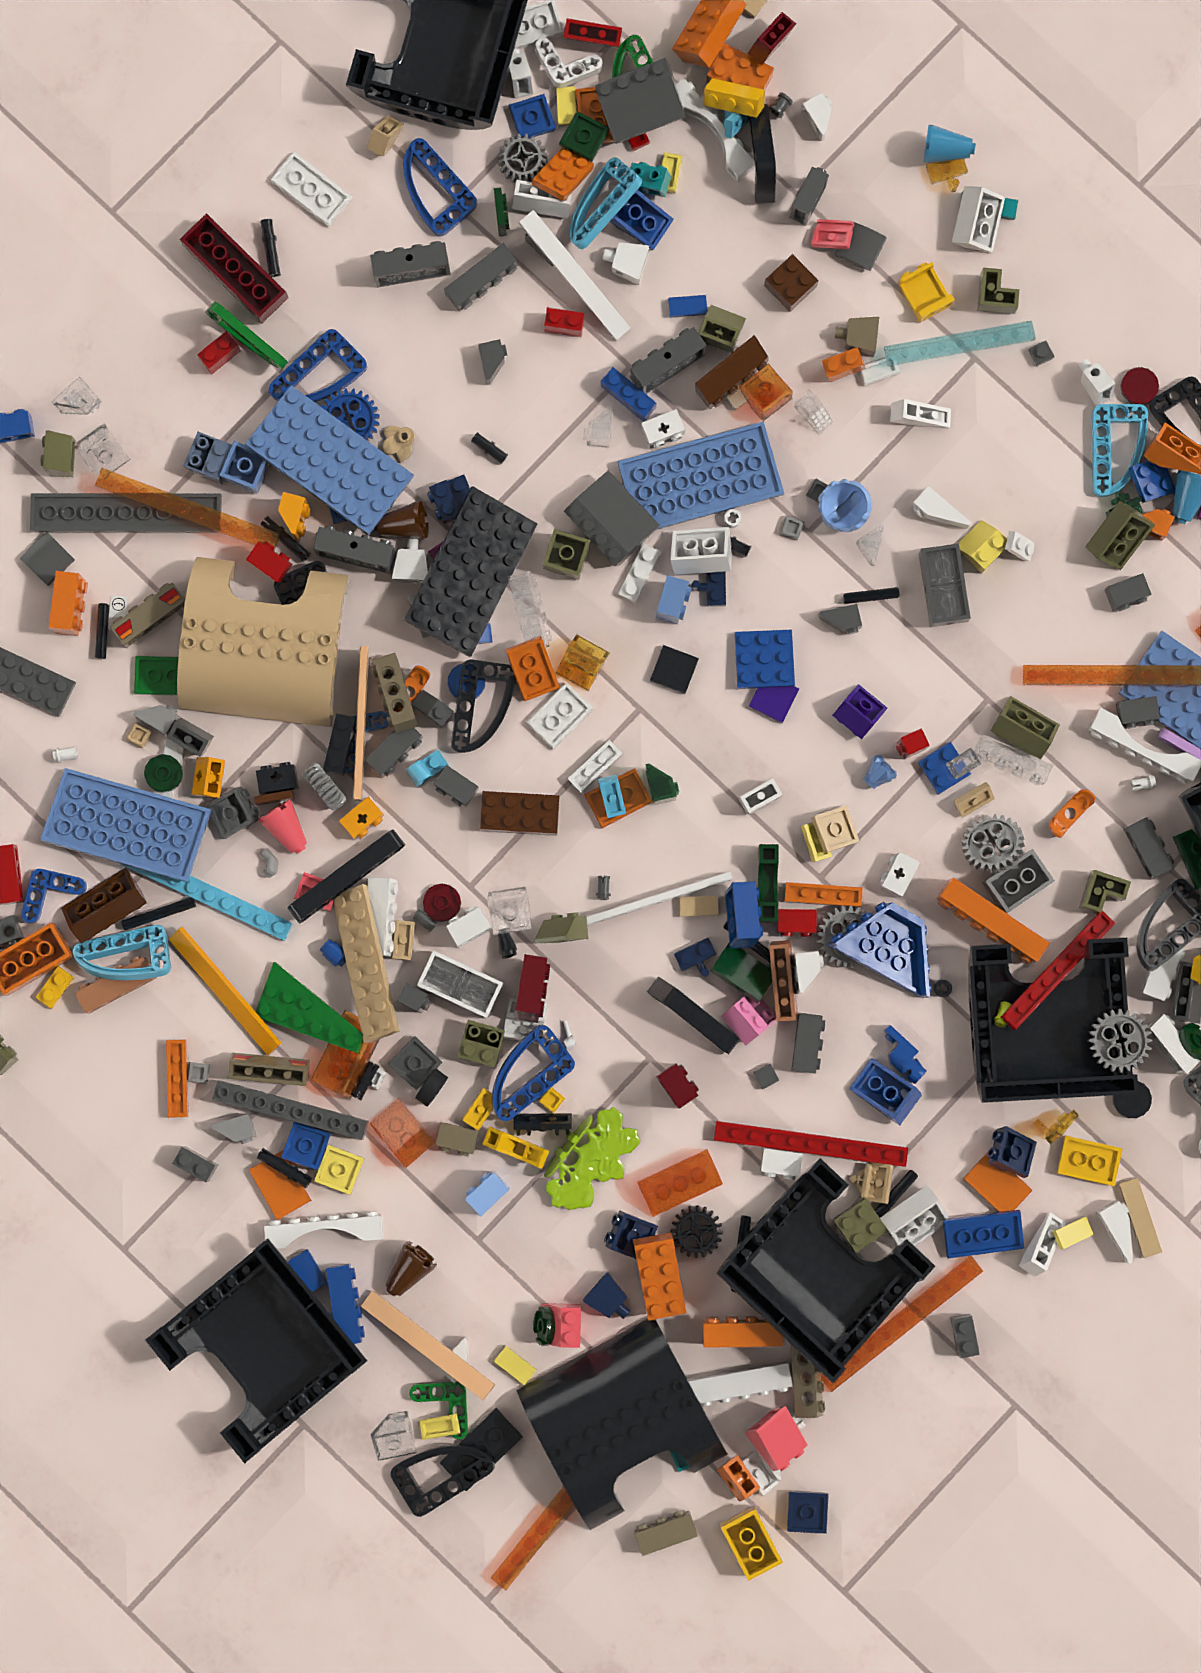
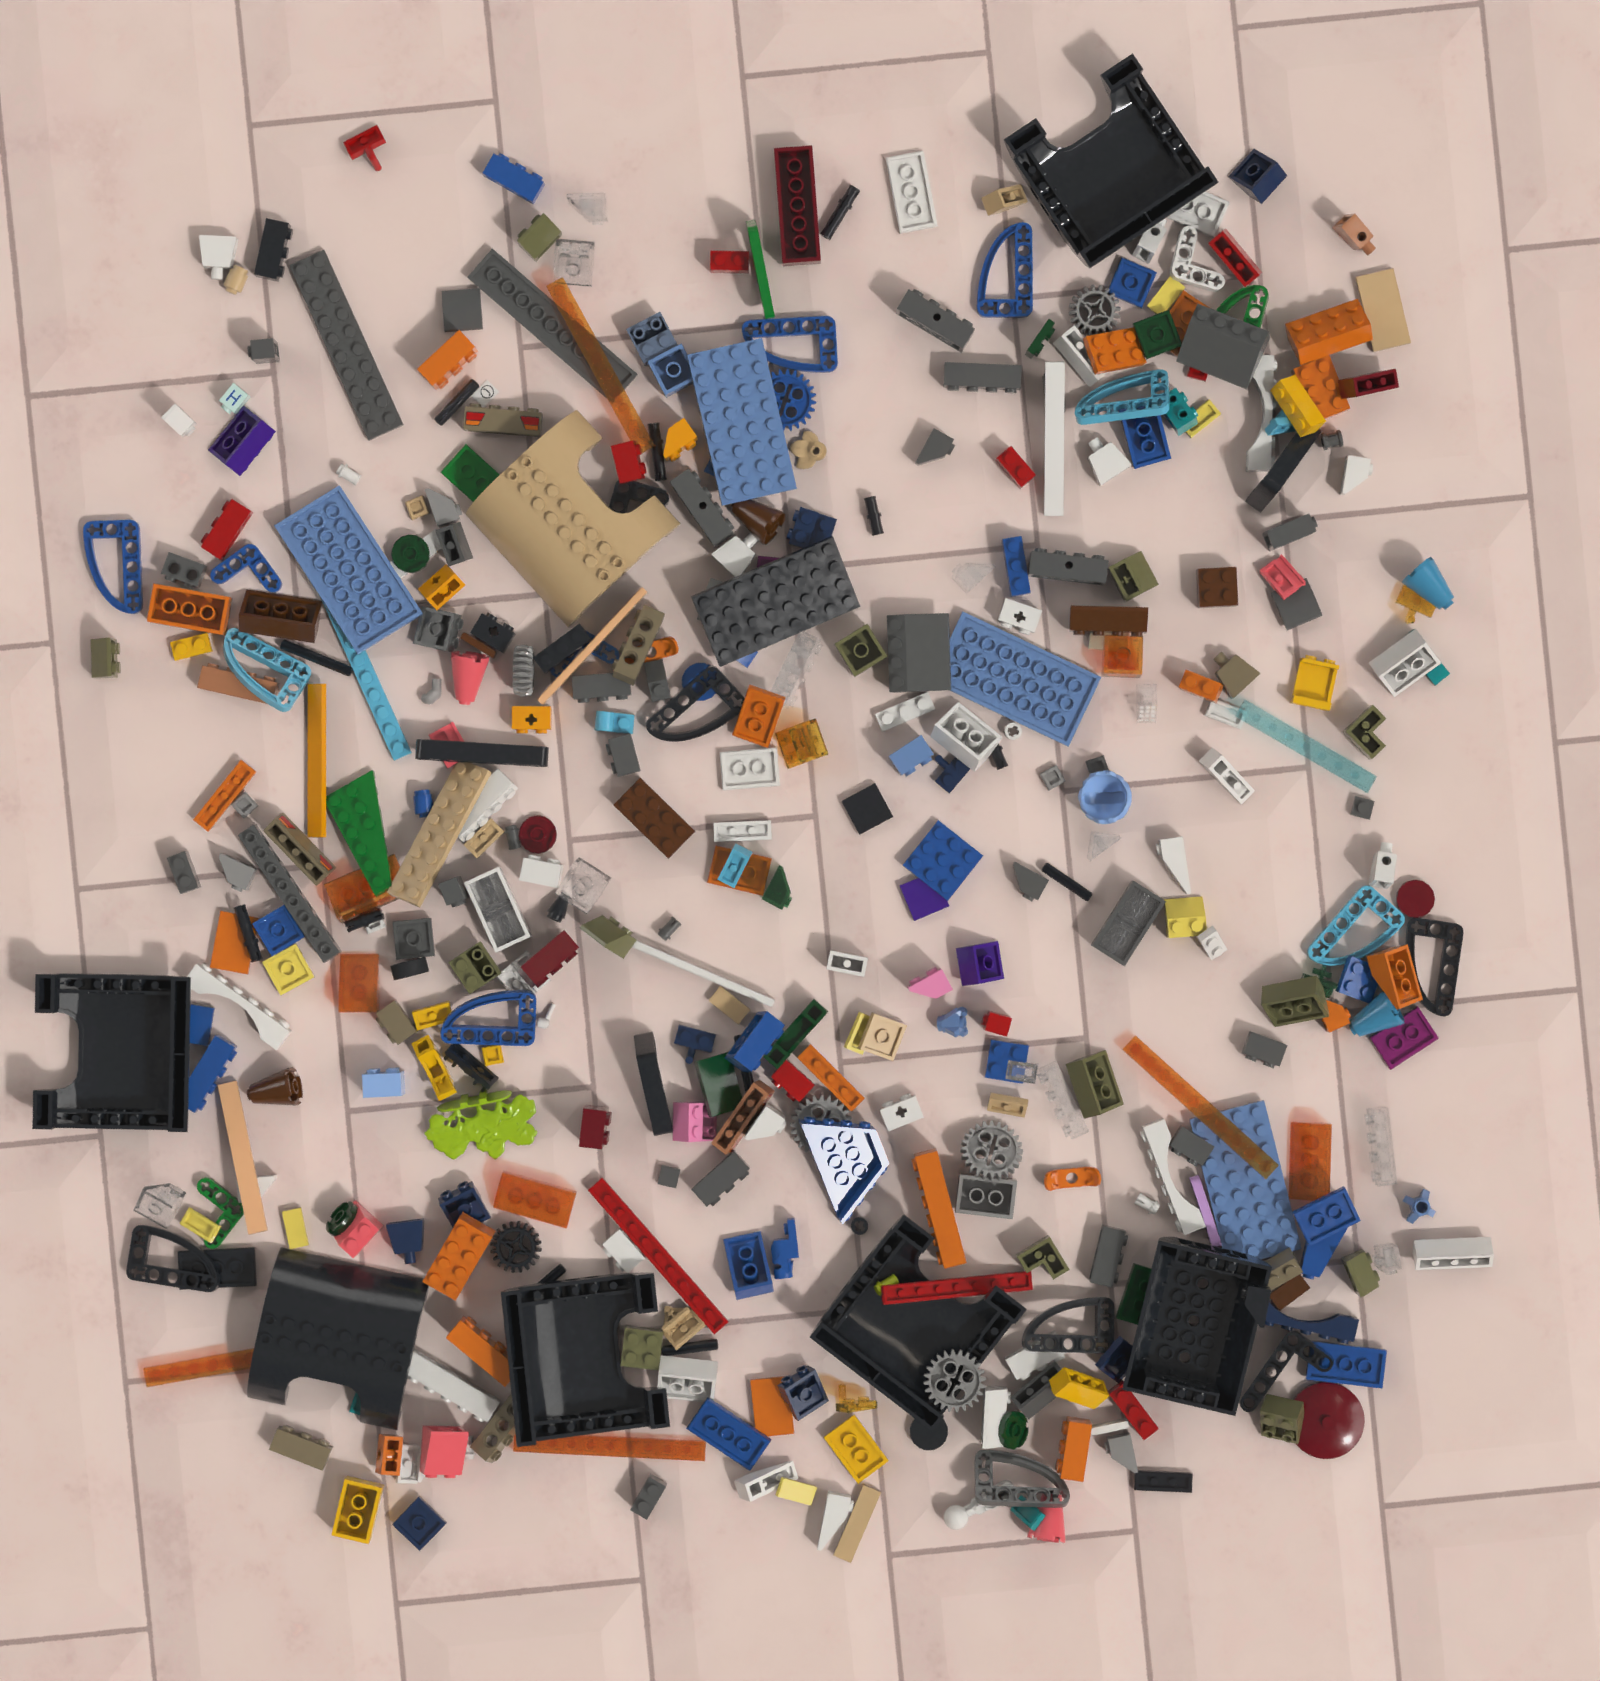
camera: 45 degrees right, 5 degrees up
(687, 306) = (1122, 536): blue tile -> none
(839, 757) = (932, 985): none -> bright pink slope

